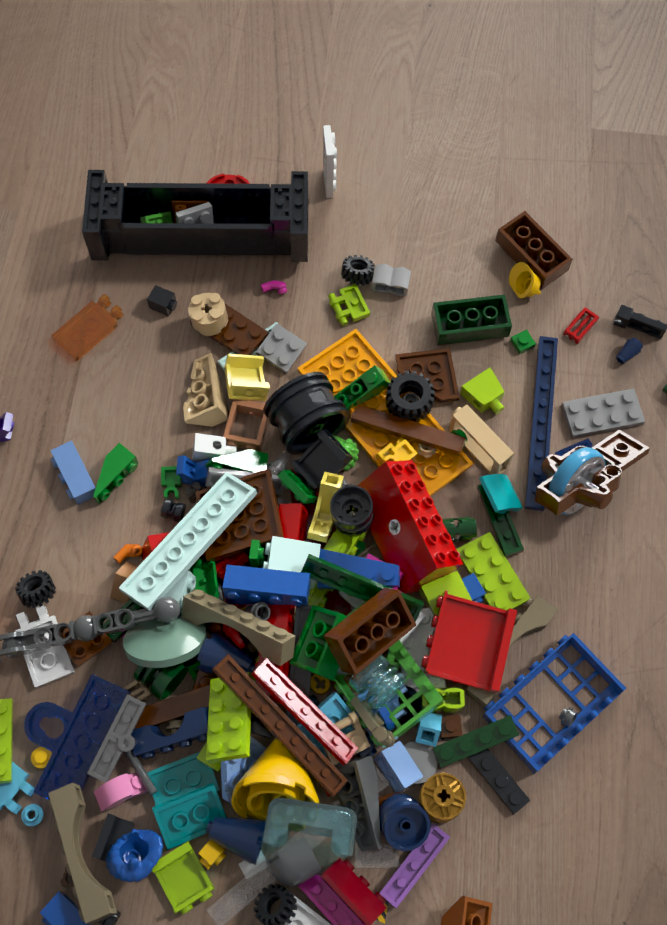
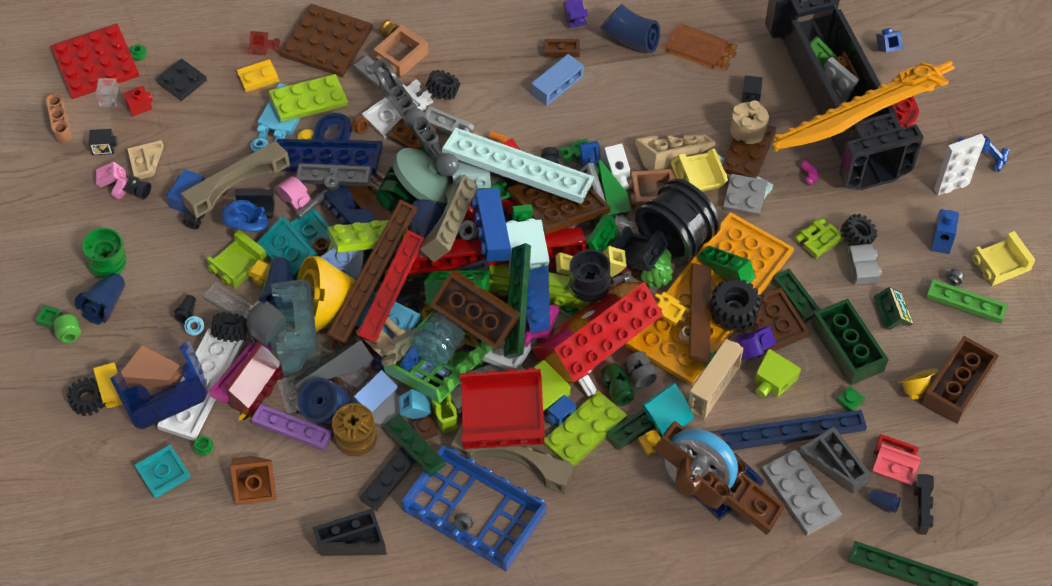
camera: 75 degrees right, 10 degrees down
(33, 455) = (562, 47): none -> reddish brown plate
(42, 382) = (632, 29): none -> dark blue brick
(48, 693) = (360, 124): none -> dark orange plate
(85, 599) = (446, 122): none -> light grey plate
(116, 467) = (568, 106): green slope -> none
(155, 166) = (889, 40): none -> blue brick
(203, 769) = (321, 242): none -> reddish brown plate
(243, 154) = (905, 85): none -> light orange piece
(303, 139) = (1000, 158): none -> blue pin
(380, 203) = (946, 224): none -> blue torso
(405, 344) = (796, 294): none -> dark green plate
(420, 173) = (1003, 259): none -> light yellow panel
(426, 216) = (955, 277): none -> dark grey plate
(443, 275) = (893, 308): none -> dark green panel
(452, 398) = (755, 342): none -> dark purple brick
(453, 217) = (967, 301): none -> bright green plate
(454, 501) = (640, 369): none -> dark grey wheel
(523, 520) = (648, 441): none -> yellow tile
(560, 832) = (351, 536): none -> black wedge
(586, 371) = (837, 460): none -> dark grey wedge
(599, 329) = (896, 465): none -> coral plate

